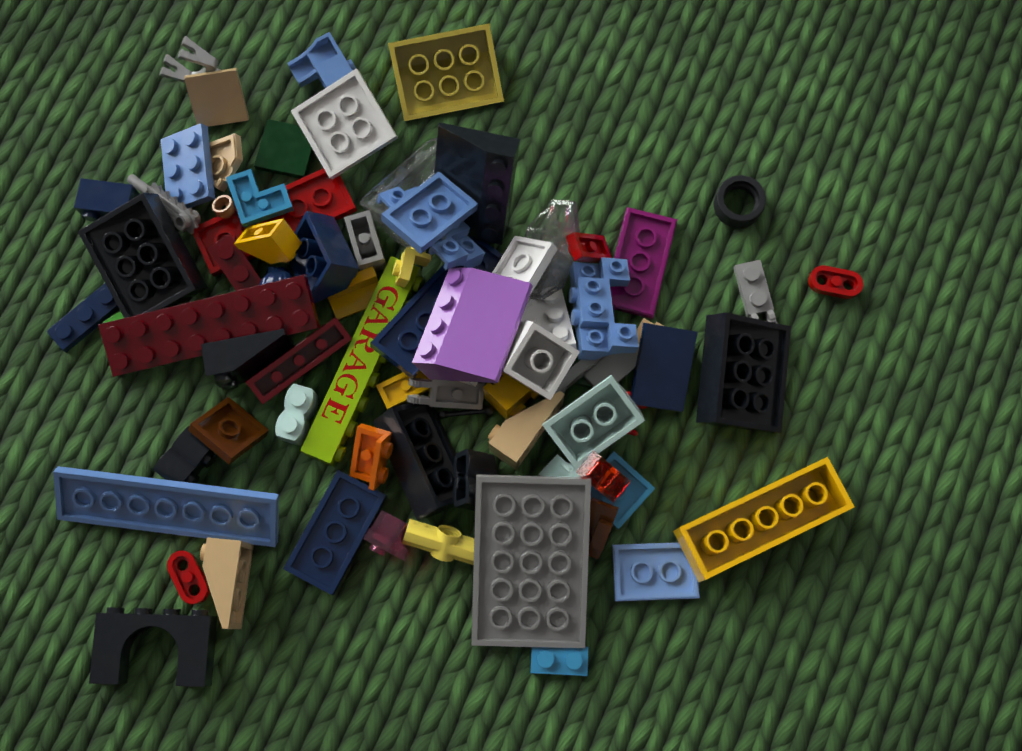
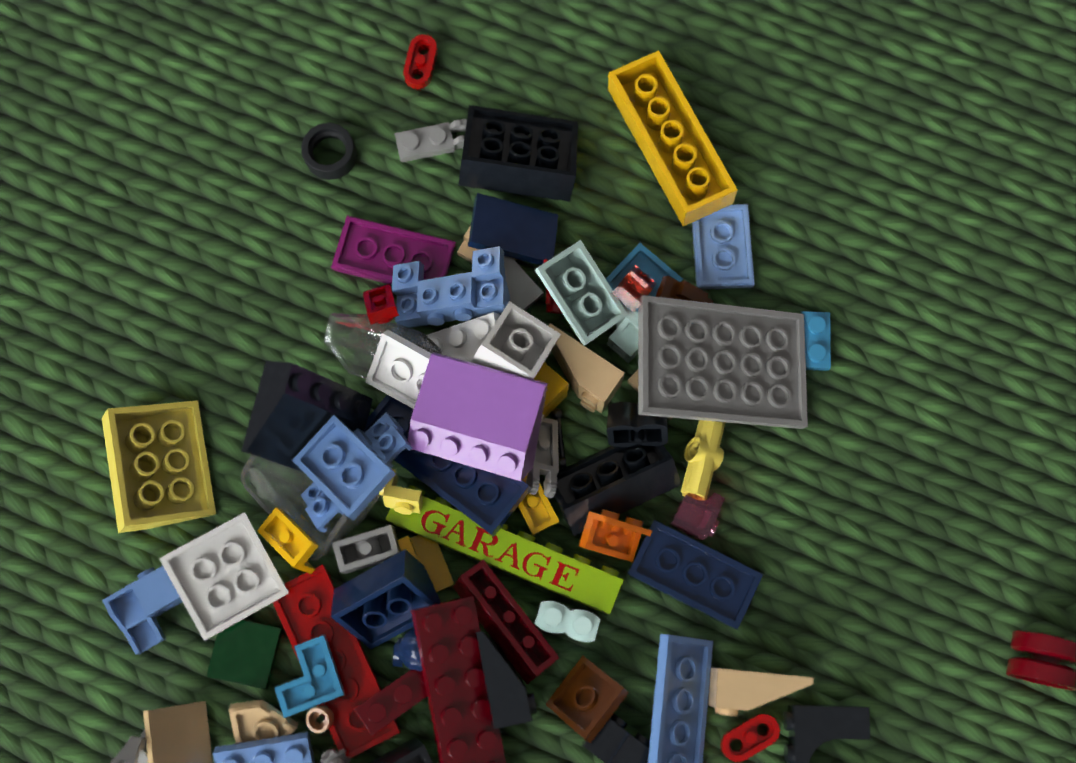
camera: 90 degrees left, 0 degrees up
(270, 241) = (366, 660): yellow slope -> none
(373, 175) = (288, 540): none -> yellow panel

